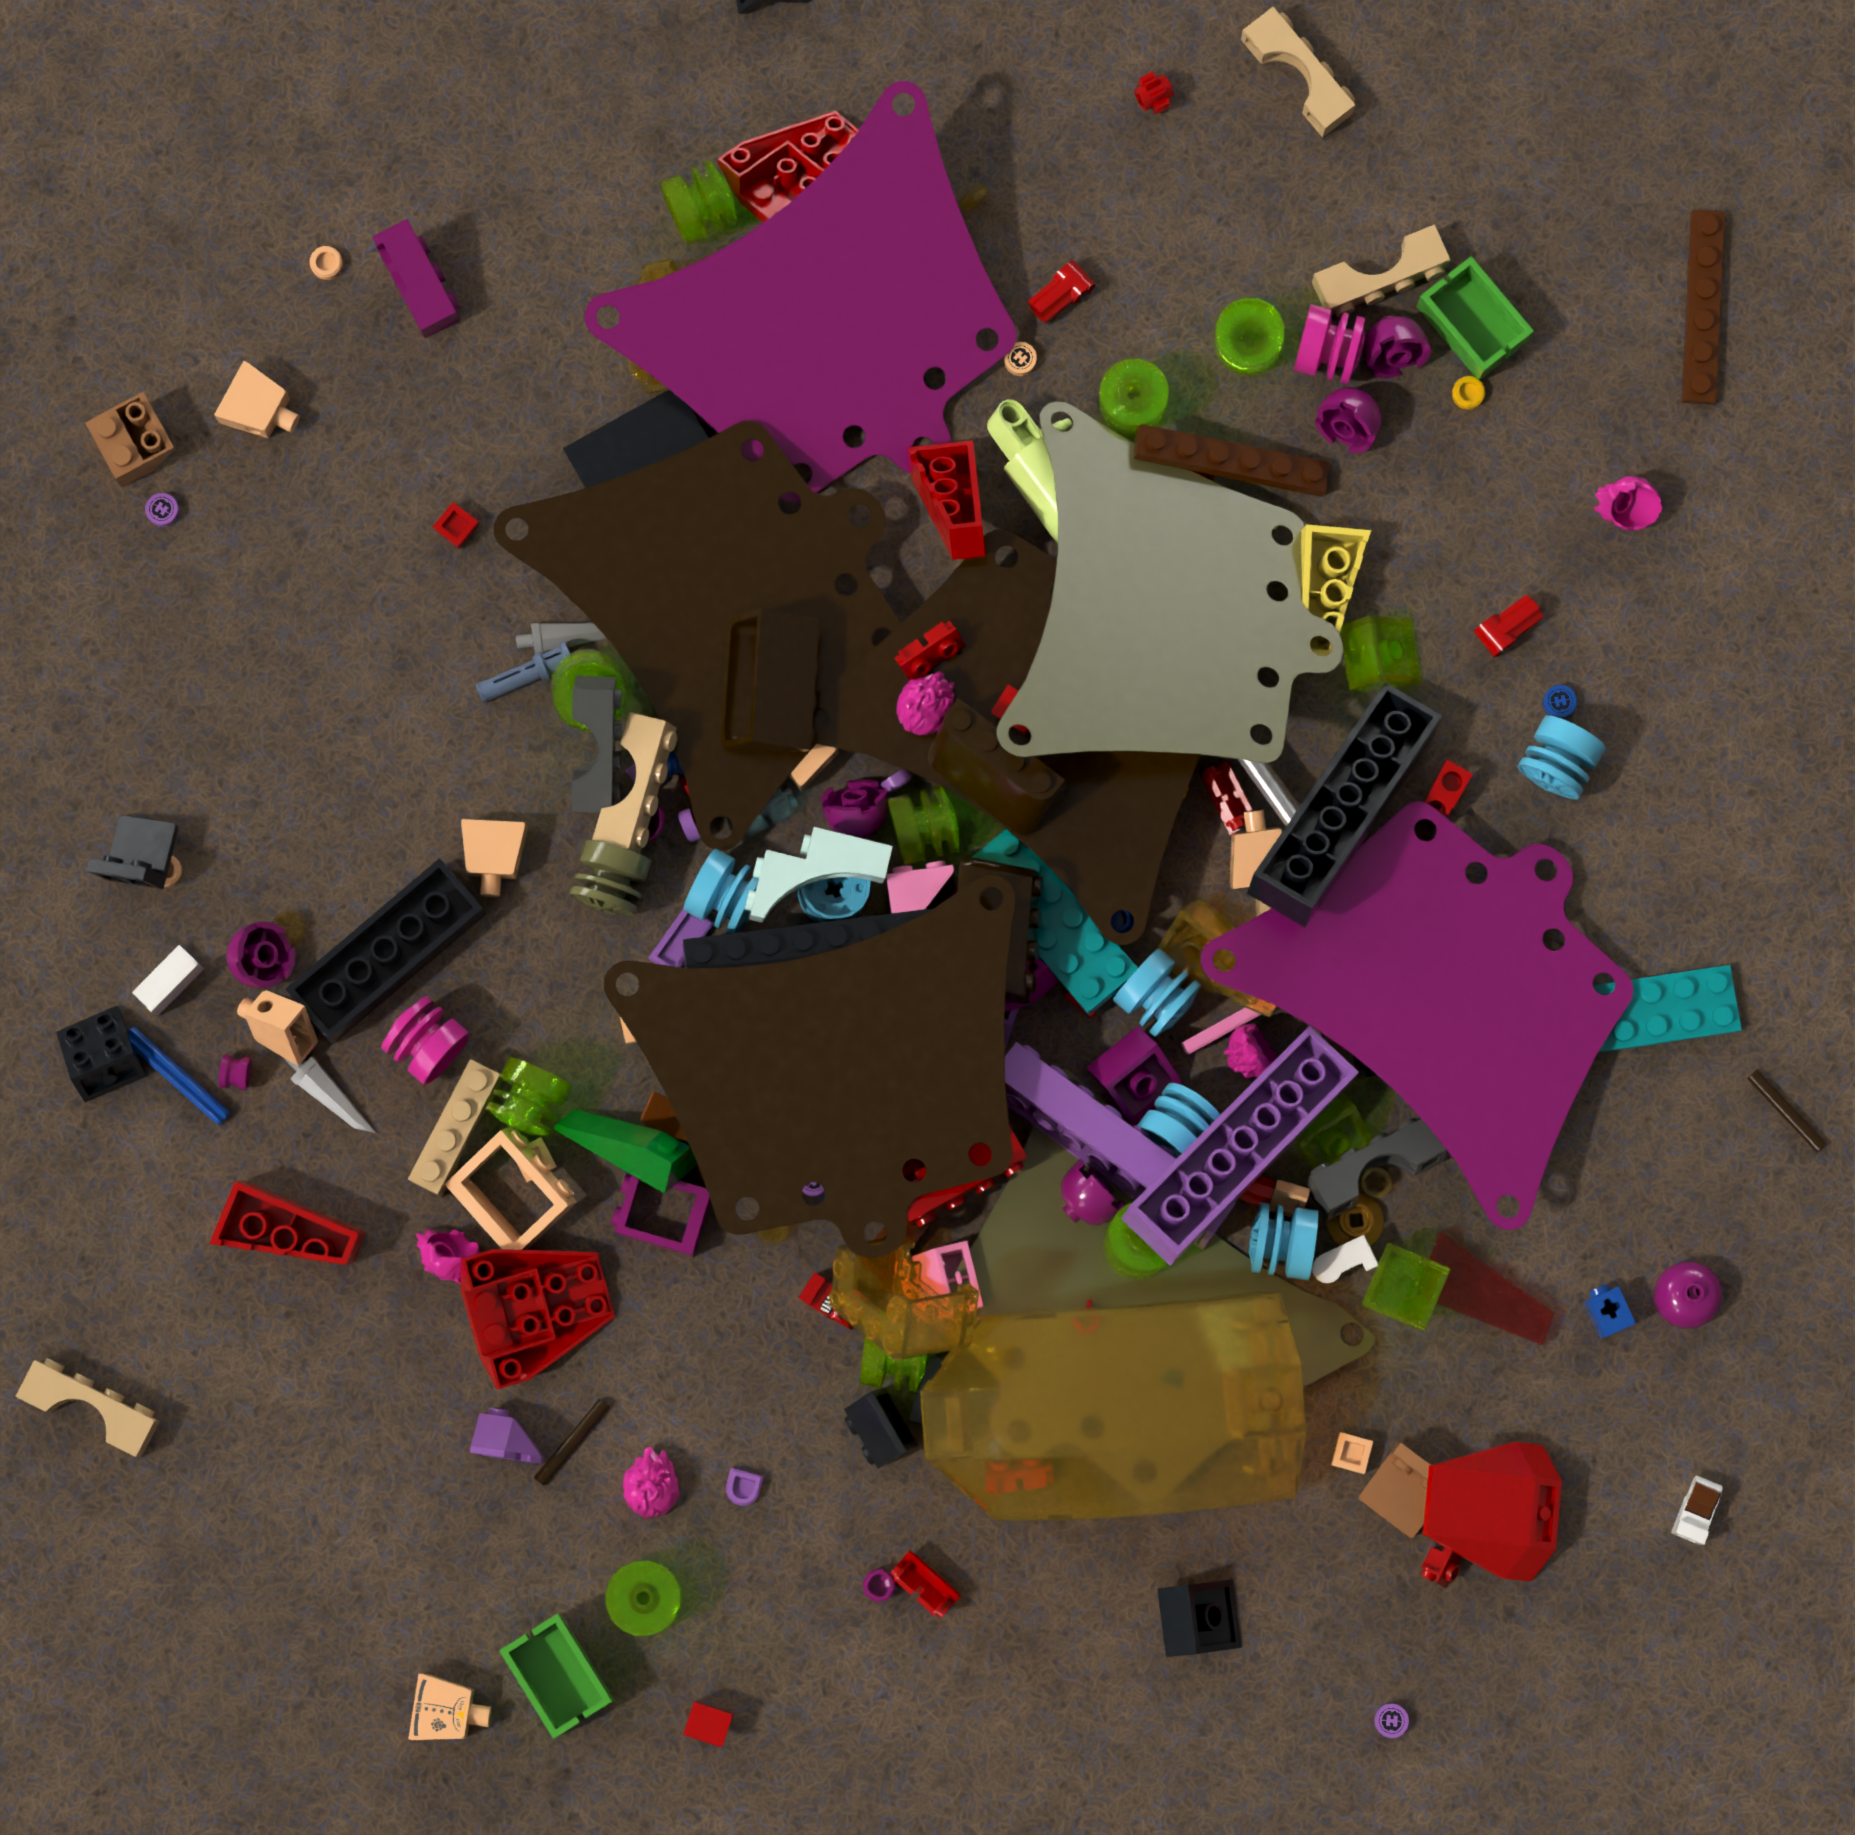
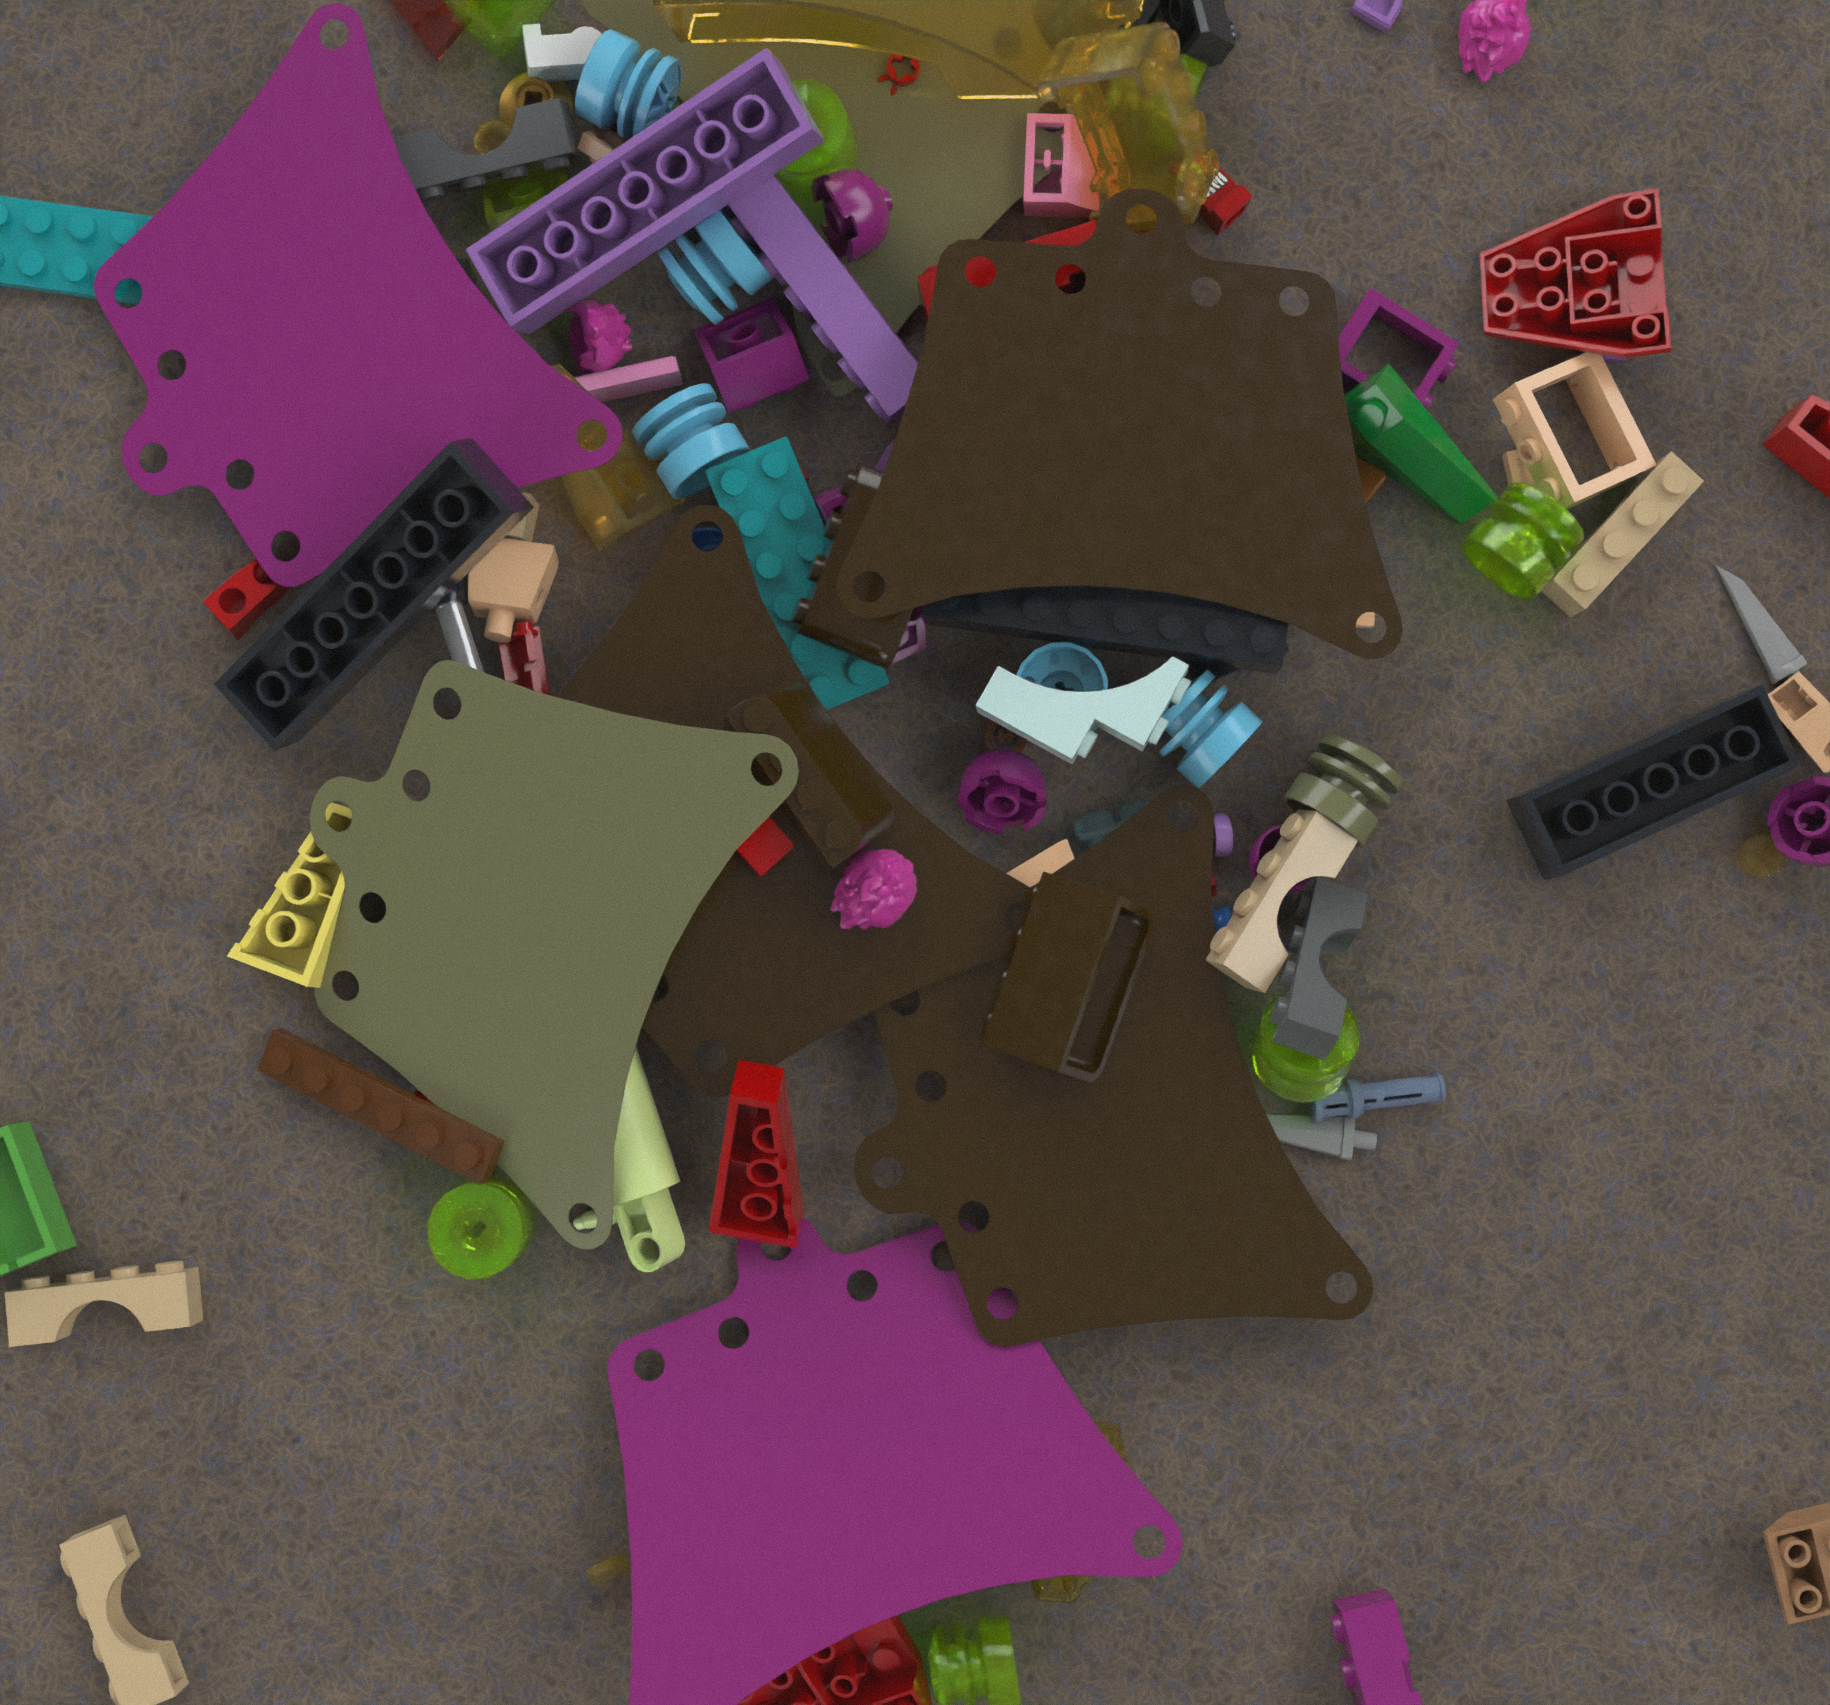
camera: 170 degrees left, 5 degrees up
(162, 509) = (1789, 1455): medium lavender tile -> none
(255, 404) = (1635, 1564): light nougat torso -> none
(419, 1035) = (1635, 652): dark pink wheel -> none
(443, 1252) = (1674, 383): dark pink hair -> none
(456, 525) = (1413, 1319): red plate -> none
(493, 851) = (1481, 874): light nougat torso -> none
(503, 1438) = (1664, 131): medium lavender slope -> none
(571, 1442) = (1574, 118): dark brown bar -> none
(636, 440) = (1149, 1363): black tile -> none
(670, 948) = (1273, 693): medium lavender tile -> none
(897, 781) = (942, 812): medium lavender tile -> none
(918, 888) = (956, 657): bright pink slope -> none
(919, 660) = (829, 962): red hinge -> none
(923, 825) = (923, 741): clear neon green wheel -> none
(1021, 359) = (613, 1327): light nougat tile -> none
(1065, 288) = (527, 1404): red piece -> none
(1154, 92) = (324, 1642): red gear -> none
(1263, 324) = (280, 1280): clear neon green wheel -> none
(1329, 344) = (194, 1219): dark pink wheel -> none
(1350, 418) = (207, 1116): magenta cylinder -> none
(1379, 653) = (271, 796): clear neon green slope -> none
(1395, 344) = (111, 1200): magenta cylinder -> none
(1468, 392) = (47, 1110): yellow tile -> none
(1503, 629) = (105, 783): red piece -> none
(1559, 701) = (67, 672): blue tile -> none
(1563, 753) = (82, 589): medium azure wheel -> none

